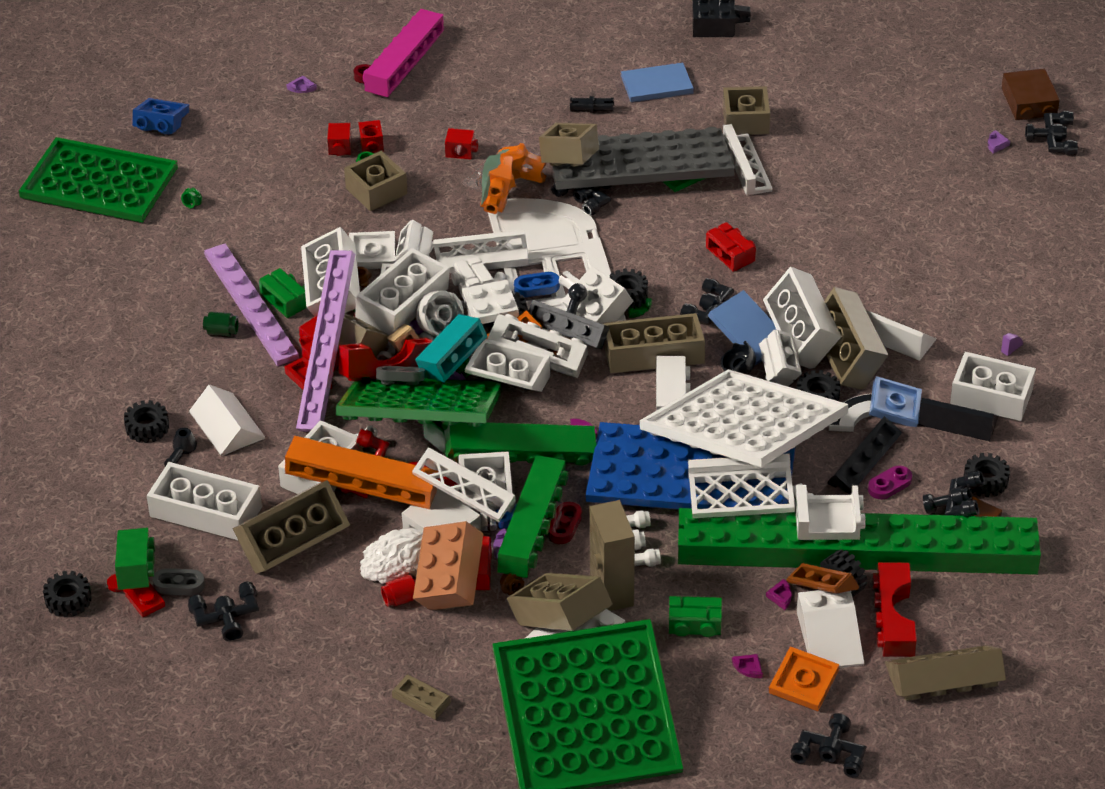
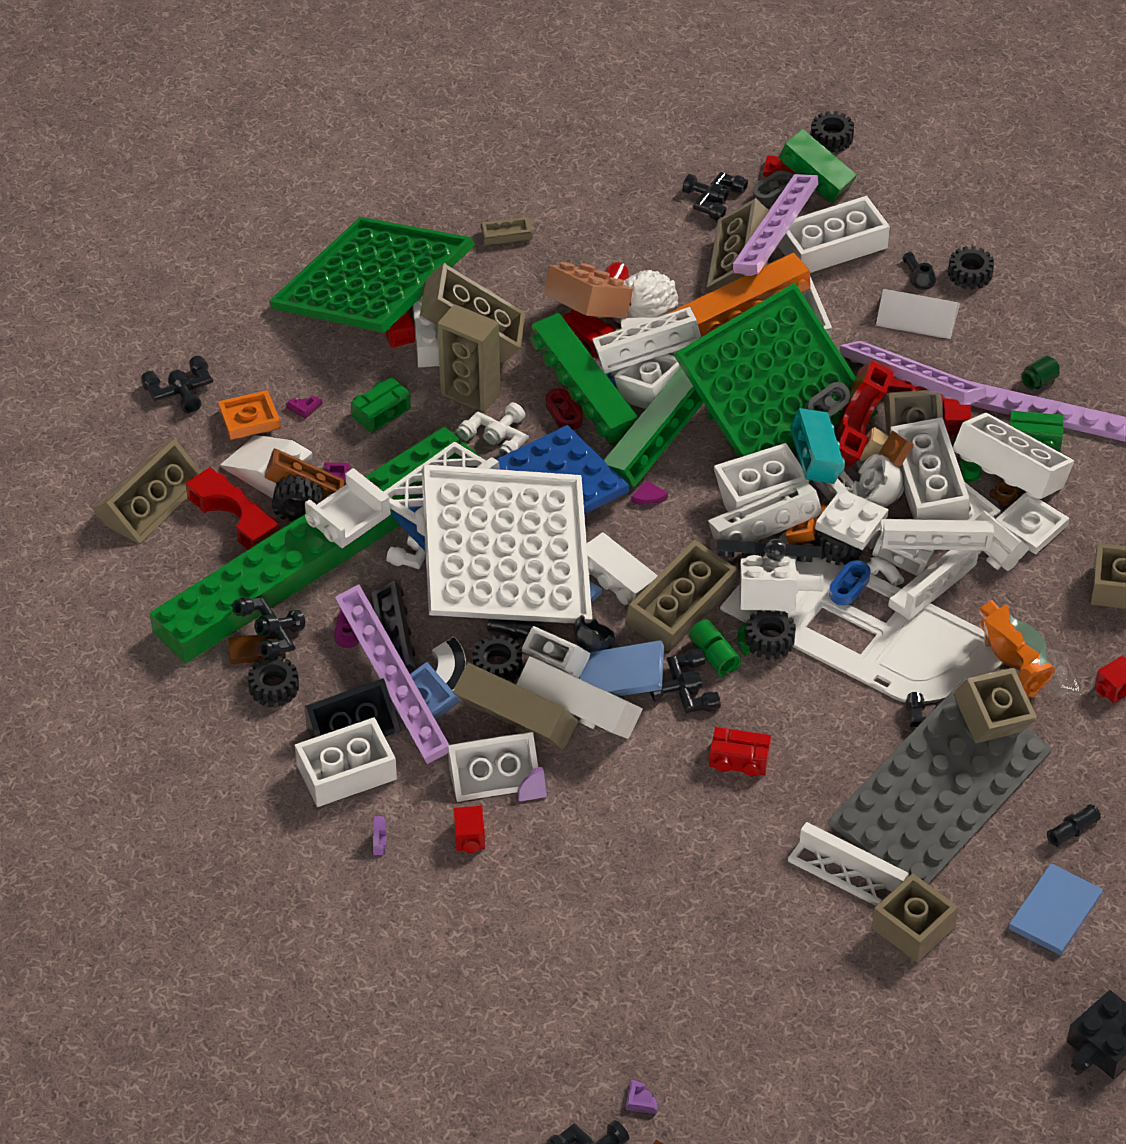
camera: 135 degrees right, 5 degrees up
(251, 503) = (775, 224): none -> lavender plate
(413, 298) = (896, 448): none -> dark orange plate
(463, 248) = (936, 534): none -> white fence
(671, 301) = (715, 647): none -> green pin
(882, 309) = (532, 786): none -> medium lavender tile
(903, 415) = (389, 666): none -> lavender plate
(950, 309) = (469, 828): none -> red brick

